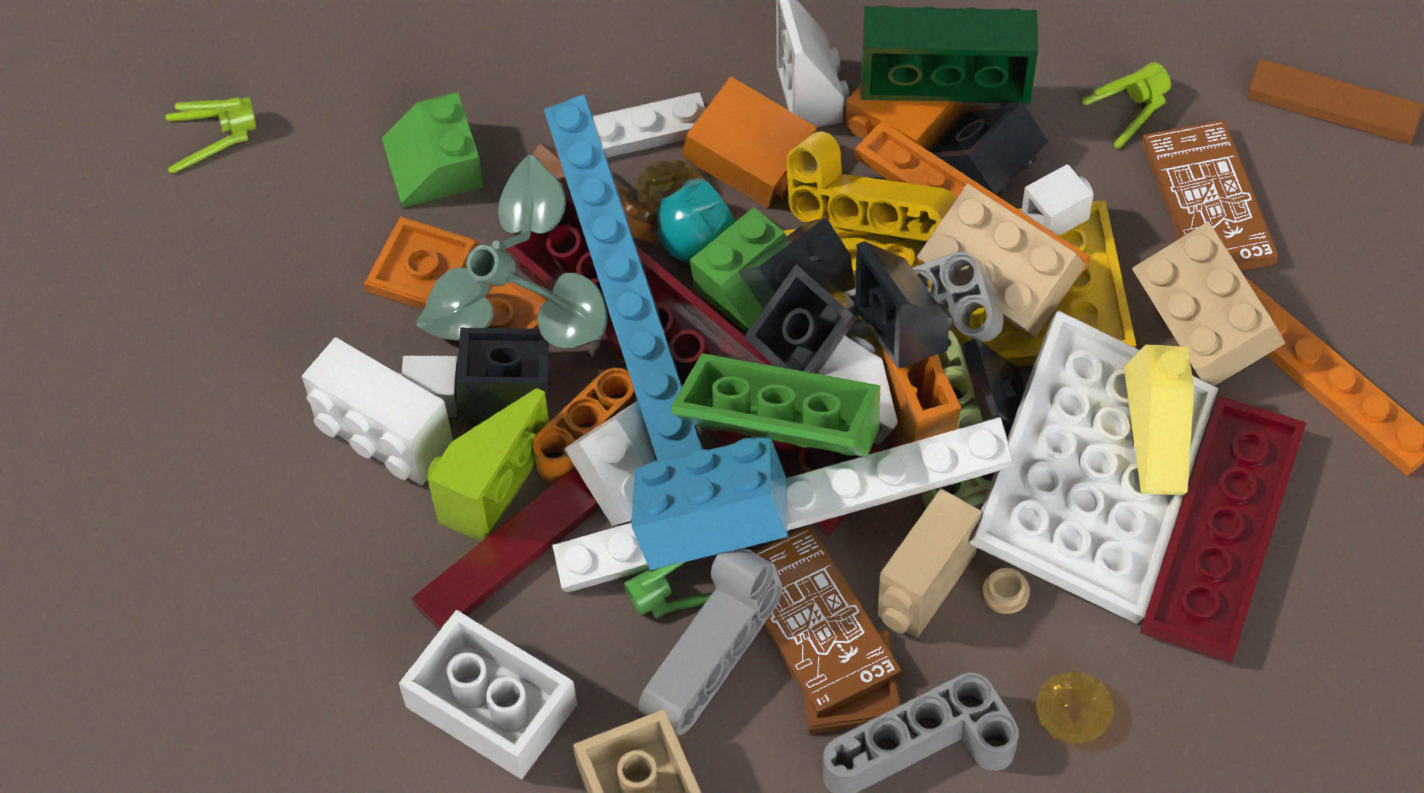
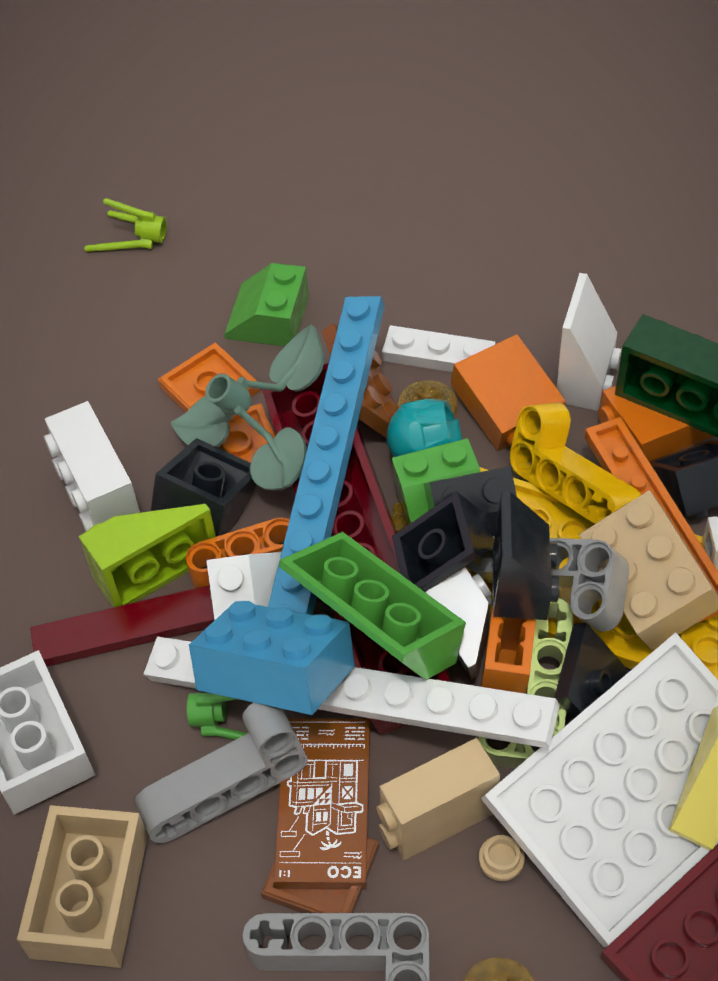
camera: 30 degrees right, 5 degrees down
(436, 376) = (142, 466): white brick -> none

